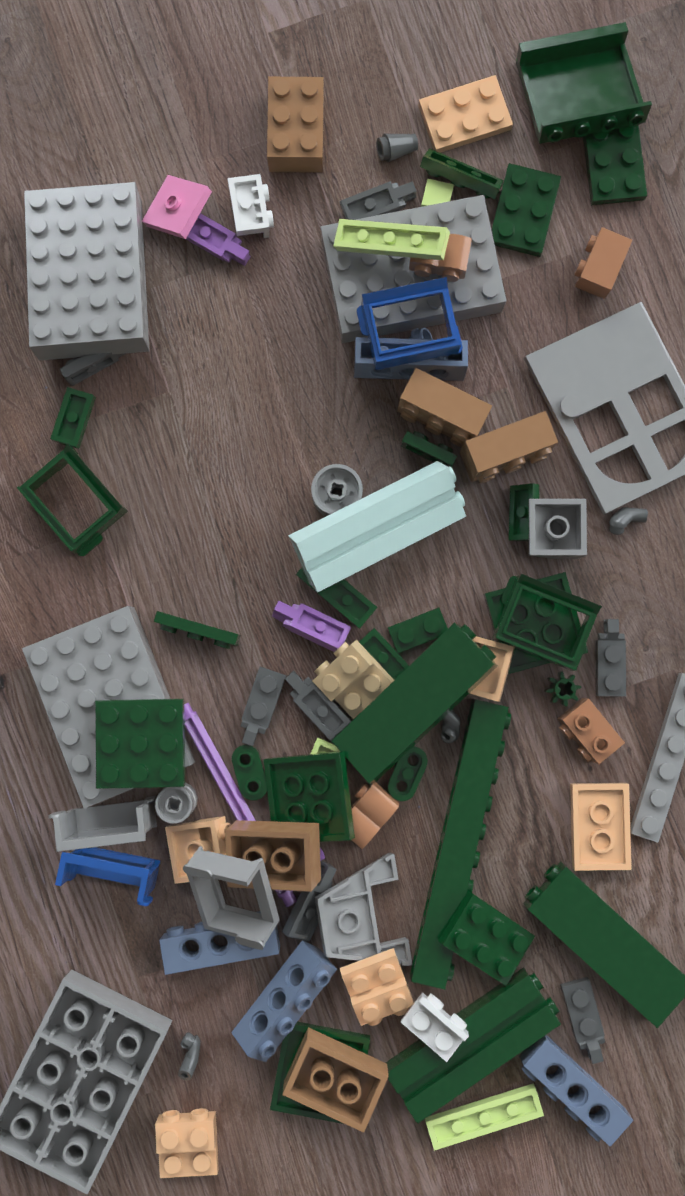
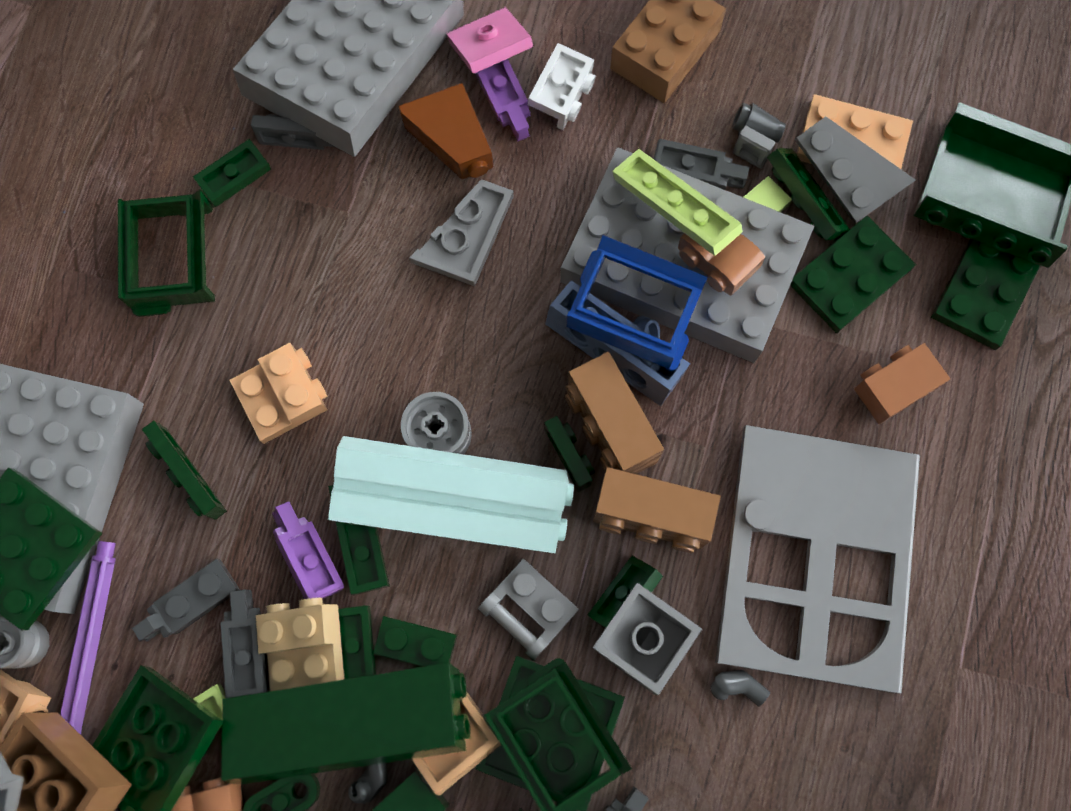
camera: 40 degrees right, 10 degrees down
(198, 289) = (449, 130): none -> dark orange slope
(218, 538) = (279, 392): none -> light nougat plate
(249, 772) = (116, 668): dark green plate -> none
(261, 353) = (466, 238): none -> light grey wing
(405, 164) = (753, 147): none -> light grey tile
(471, 552) = (537, 599): none -> light grey plate
(479, 137) = (851, 169): none -> light grey wing

